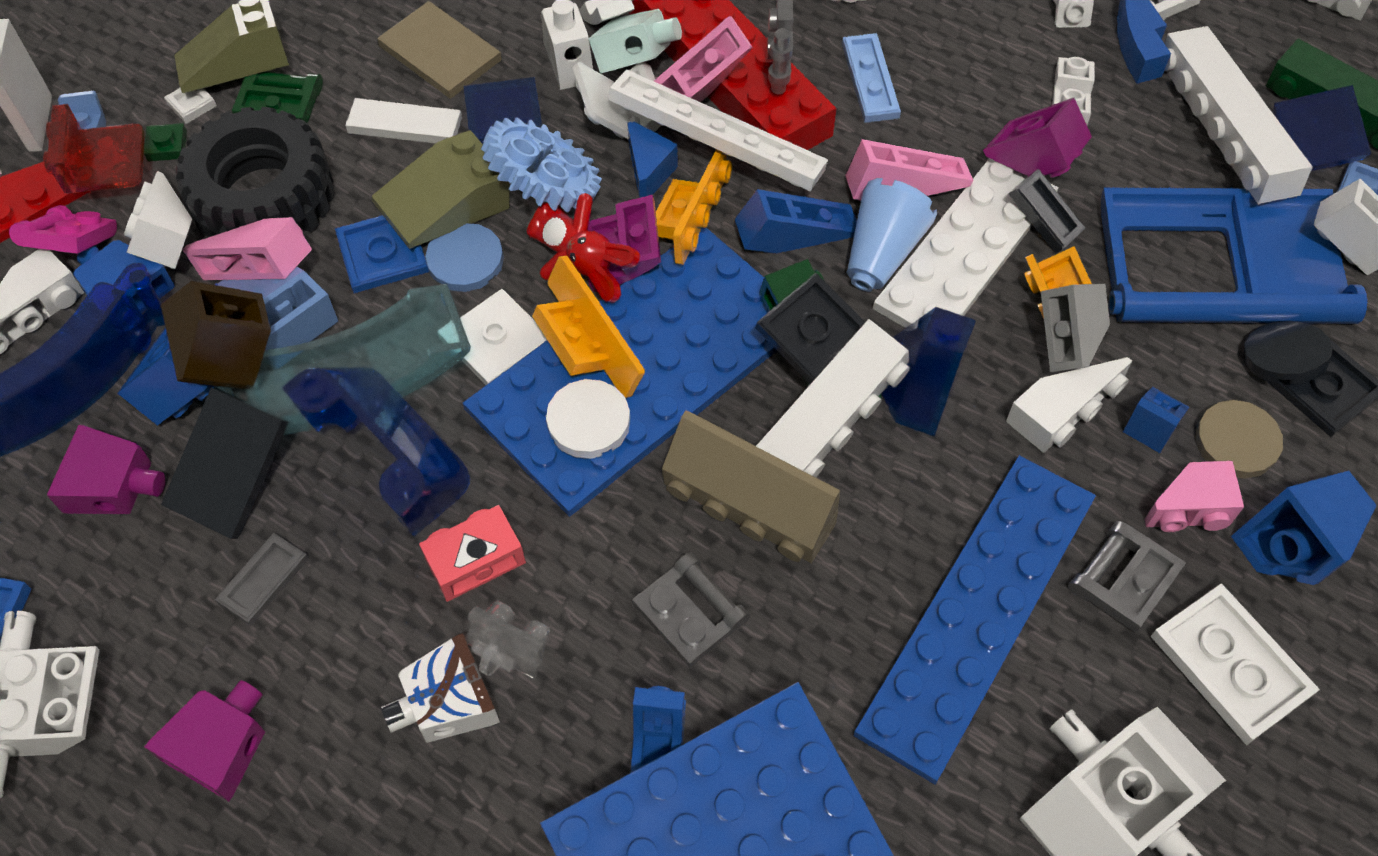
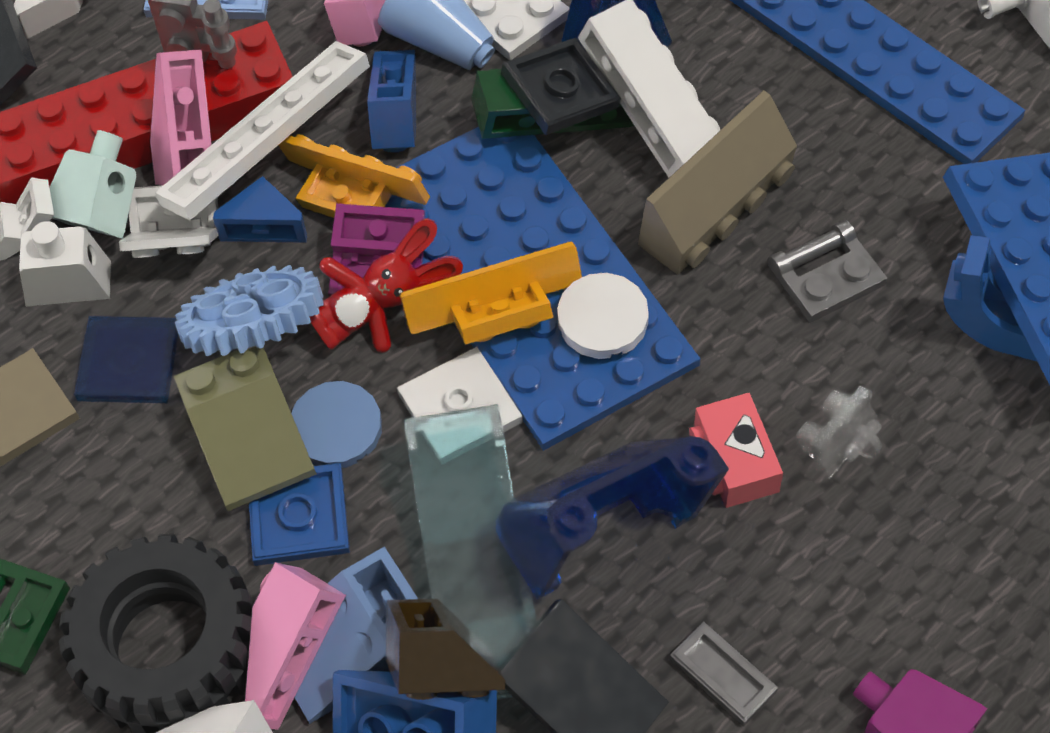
camera: 75 degrees left, 0 degrees up
(402, 121) = (102, 471): white tile -> none
(442, 694) = (893, 493): torso -> none

